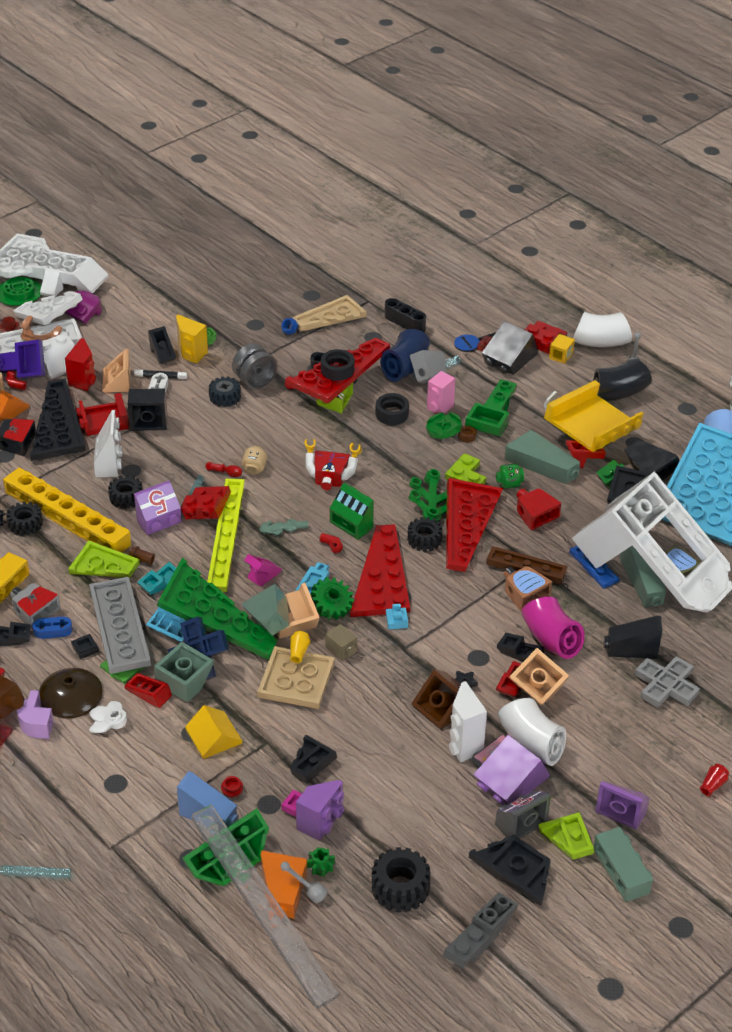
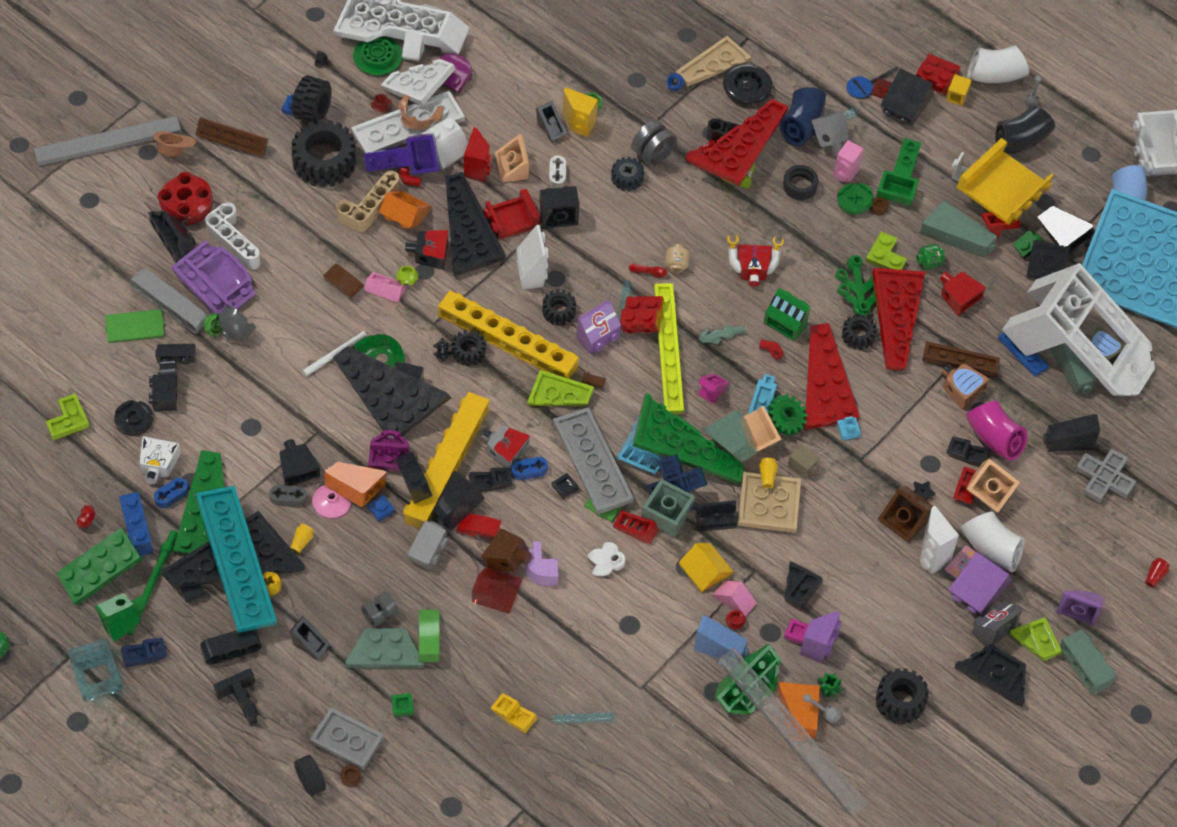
camera: 10 degrees left, 15 degrees up
(71, 692) = (565, 545): dark brown dish -> none
(149, 373) = (548, 155): bar -> none
(157, 581) = (617, 405): teal slope -> none
(236, 684) = (716, 515): none -> black hinge
(239, 764) = (735, 596): none -> bright pink slope
(337, 373) = (746, 130): black tyre -> none
(357, 331) = (747, 88): none -> black wheel
(404, 315) = (792, 59): black beam -> none
(482, 931) = (977, 735): dark grey slope -> none

